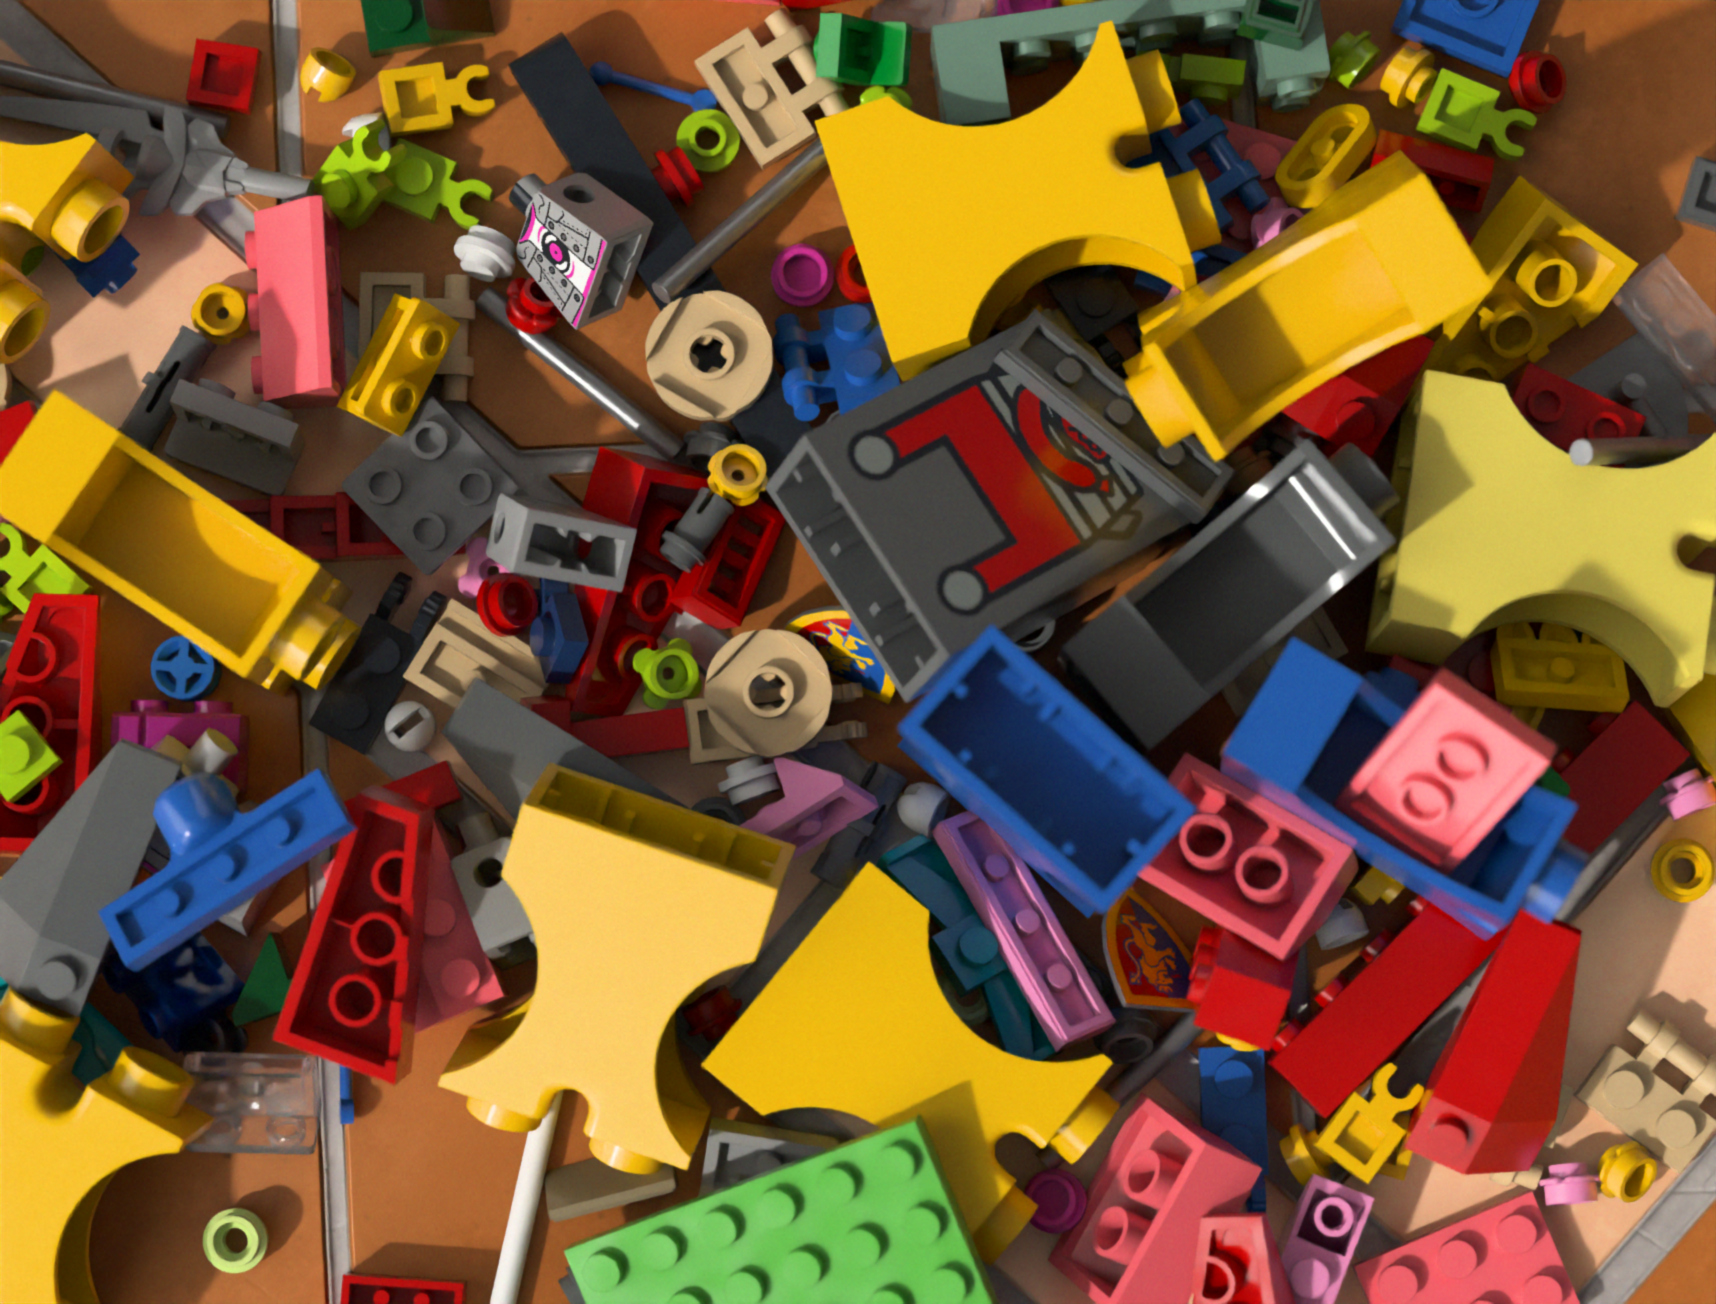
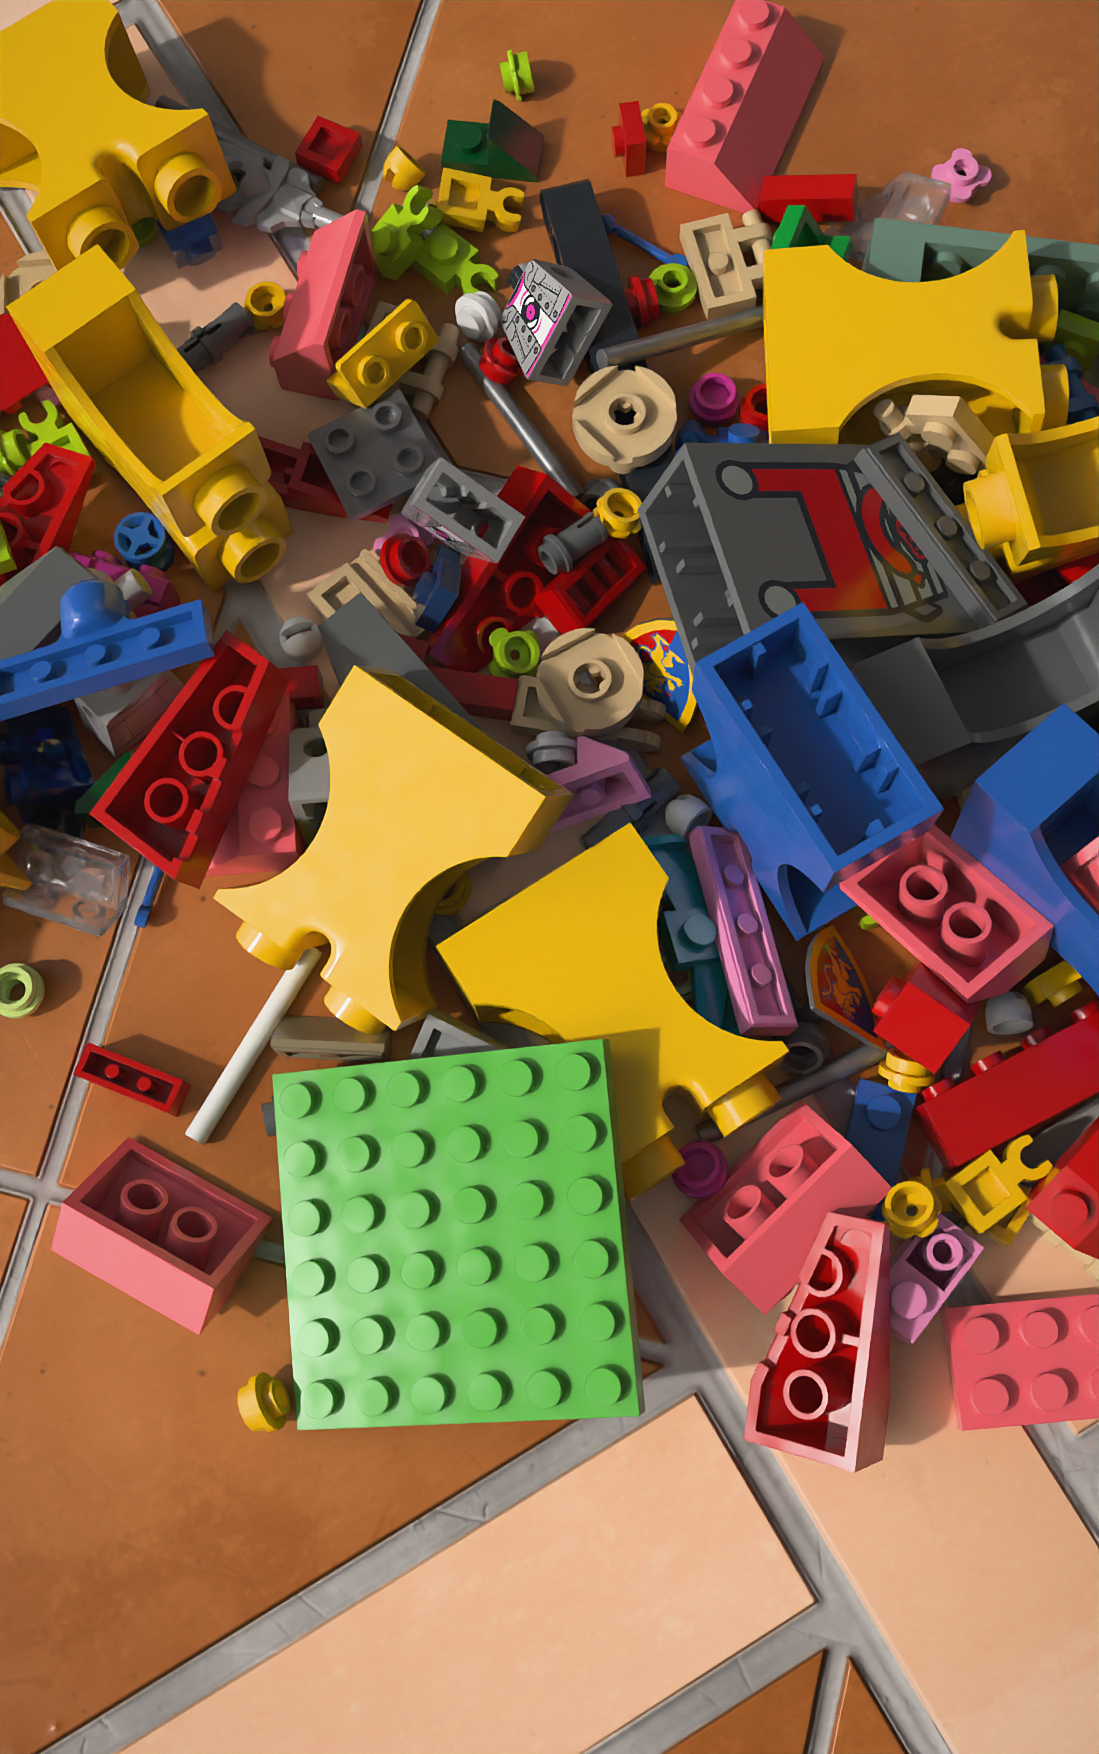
camera: 20 degrees right, 10 degrees down
(233, 438) = (247, 381): light grey bracket -> none
(374, 670) = (282, 591): black hinge -> none
(712, 1013) = (457, 920): red plate -> none
(1082, 289) = (937, 430): none -> tan plate
(1274, 1175) = (908, 1195): none -> yellow plate

